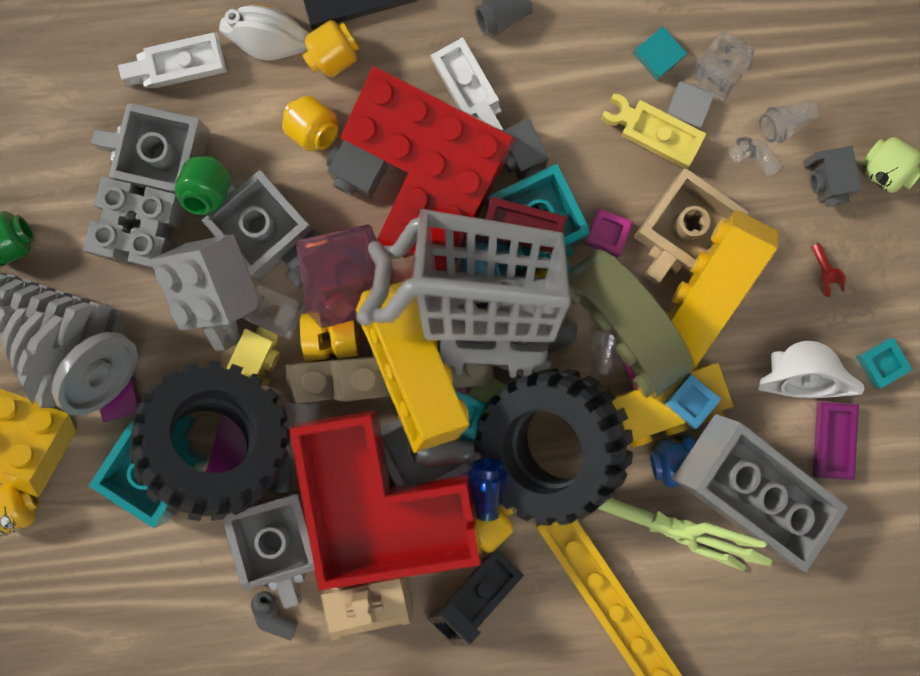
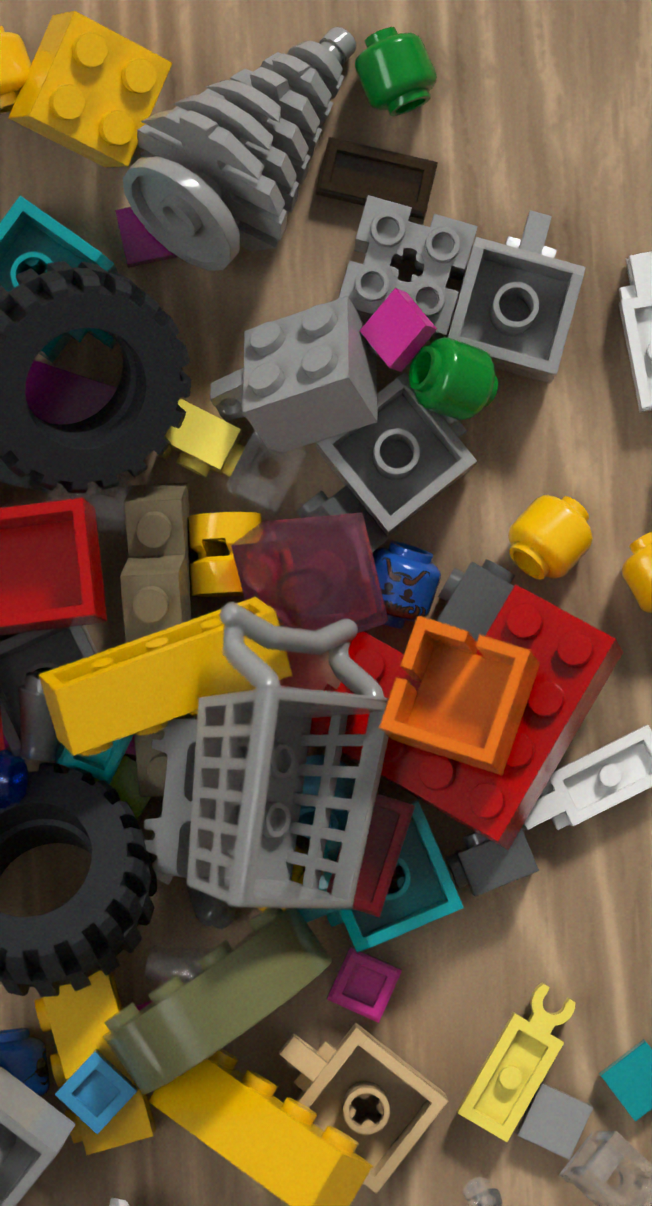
camera: 85 degrees right, 0 degrees up
(71, 264) = (358, 170): none -> dark brown tile
(170, 223) = (398, 330): none -> dark pink tile
(343, 213) = (406, 581): none -> blue head
(419, 162) = (465, 701): none -> orange piece

